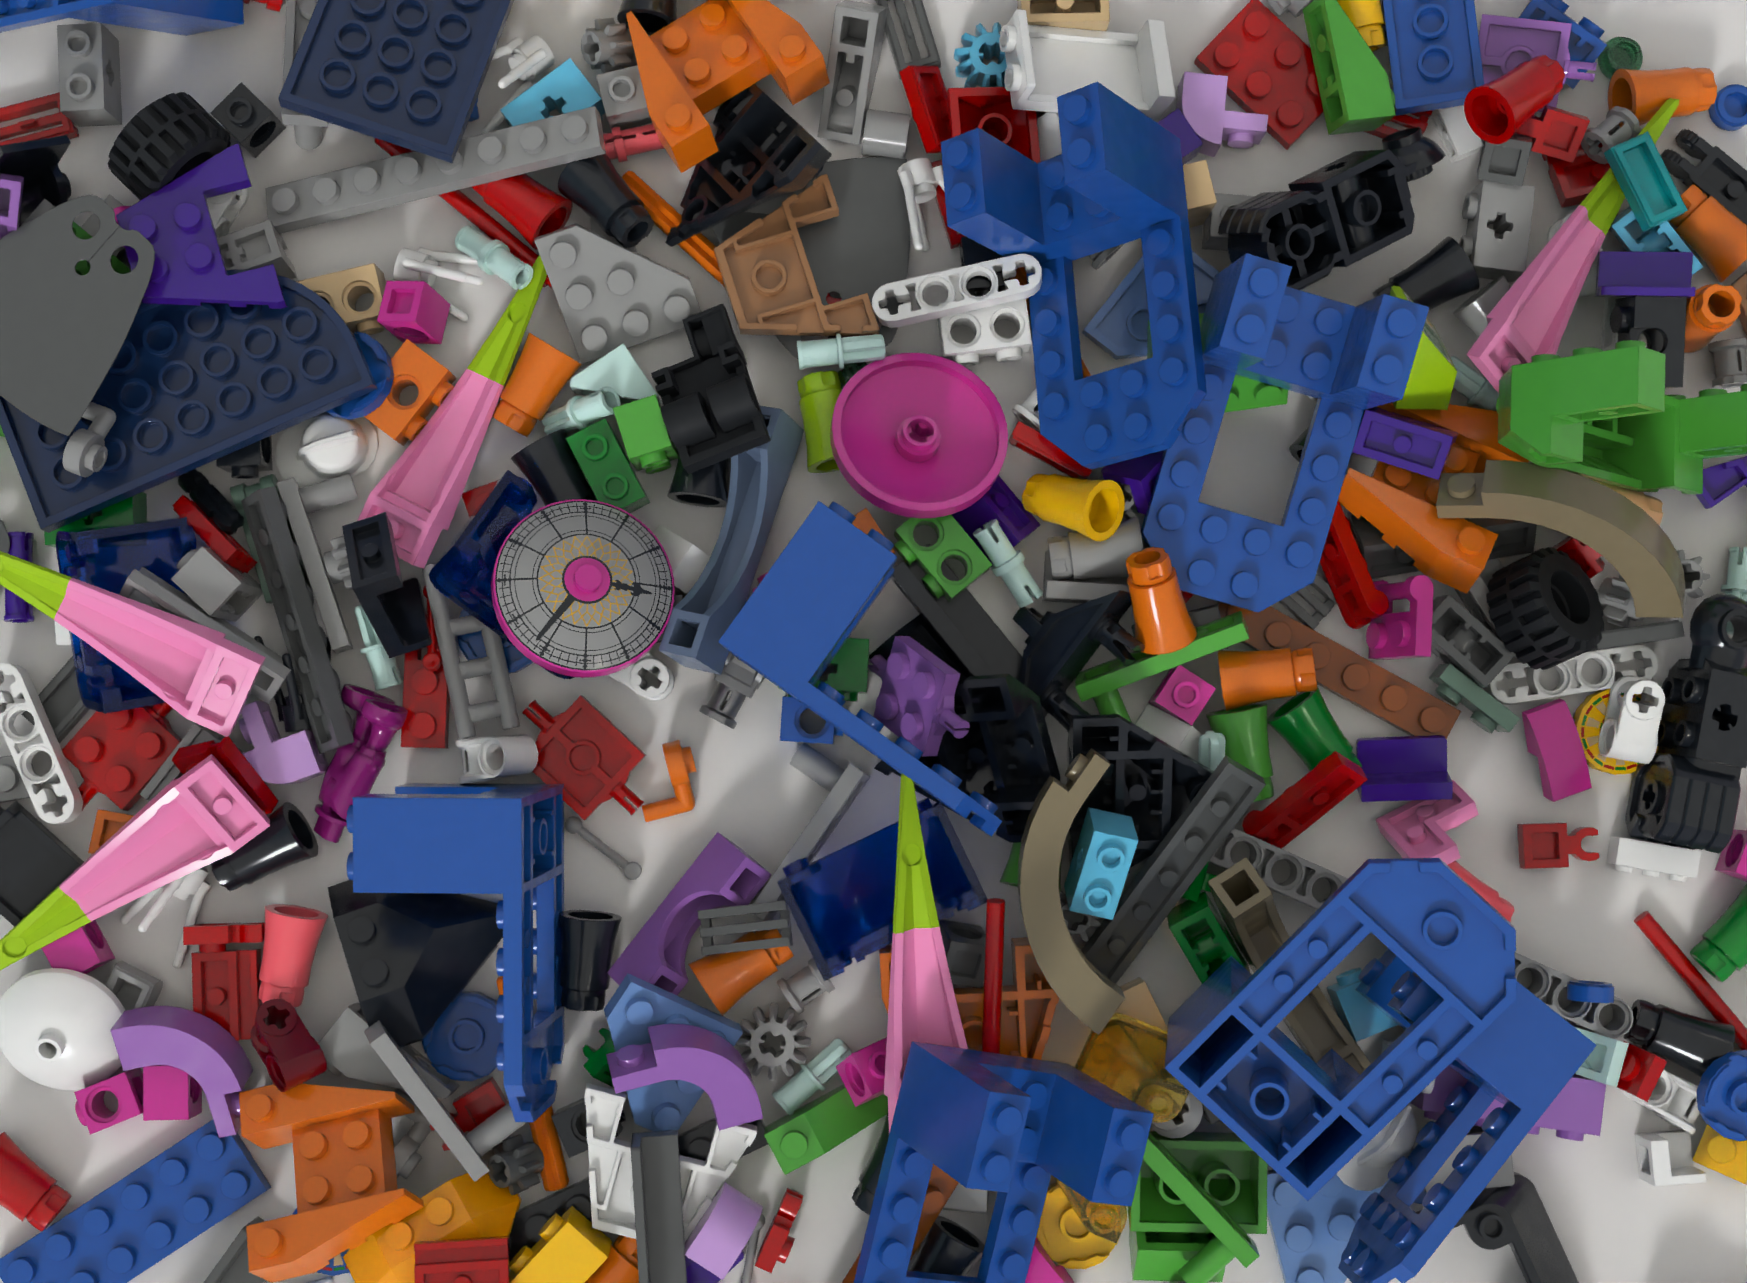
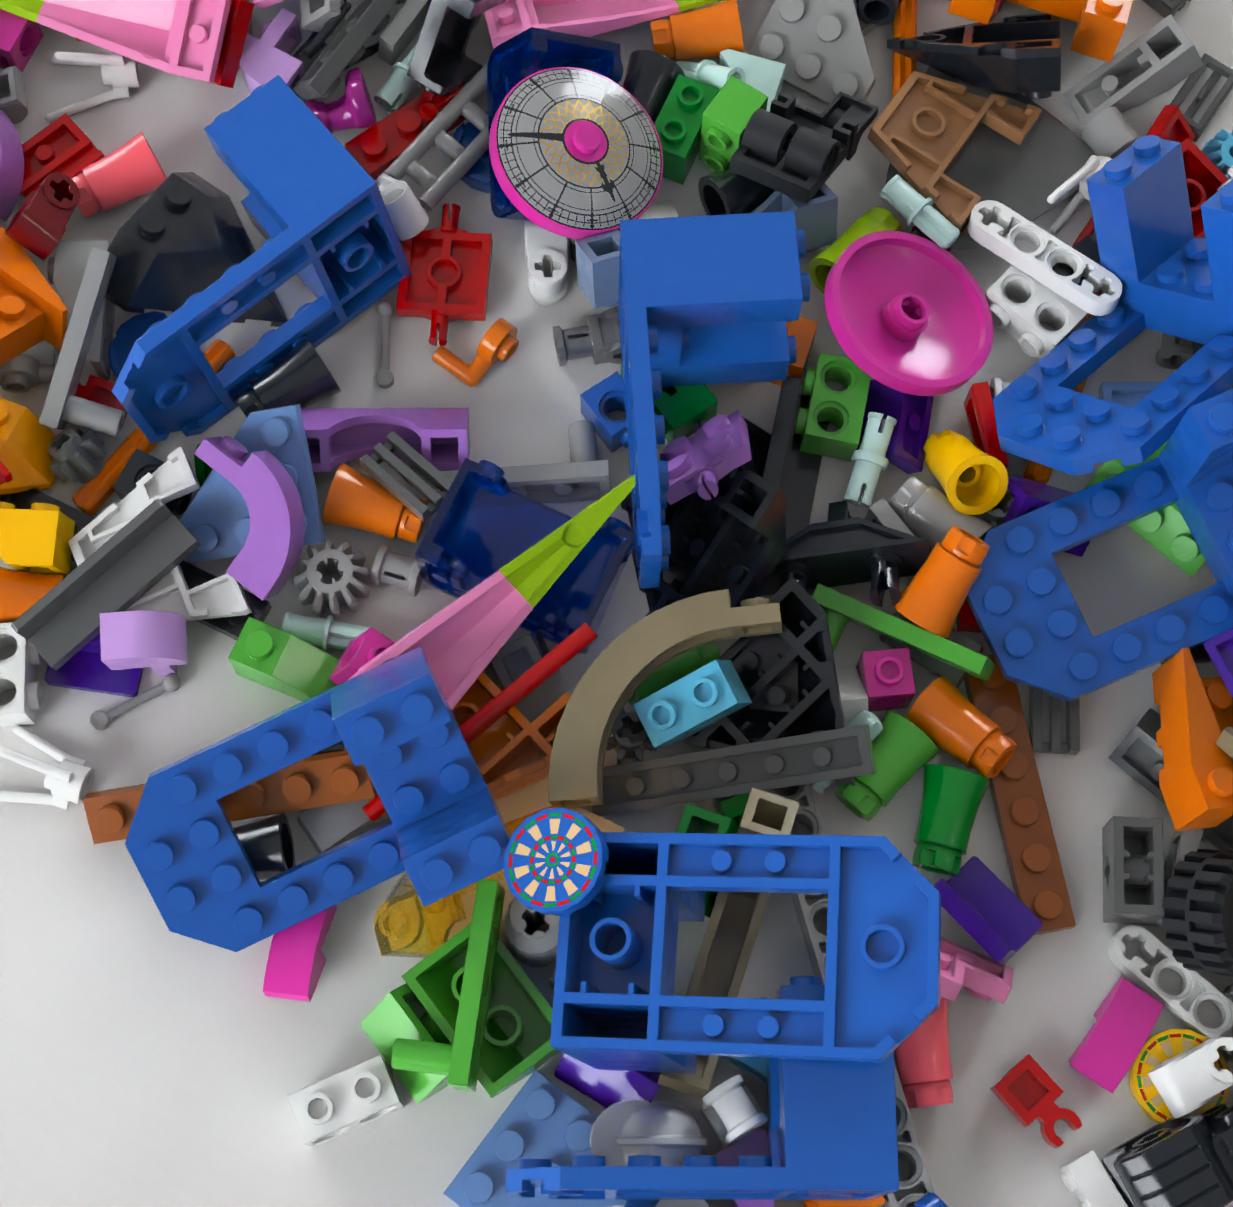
camera: 55 degrees right, 15 degrees down
(215, 936) = (94, 121): red plate -> none
(278, 846) = (183, 102): black plant -> none
(777, 1242) = (168, 703): red plate -> none
(1065, 1235) = (354, 952): yellow tile -> none
(1184, 1095) = (556, 861): none -> blue tile
(1305, 801) = (922, 841): red plate -> none
(1349, 575) = (1105, 730): red plate -> none
(1403, 633) = (1106, 801): dark pink plate -> none
(1486, 710) = (1096, 945): sand green plate -> none

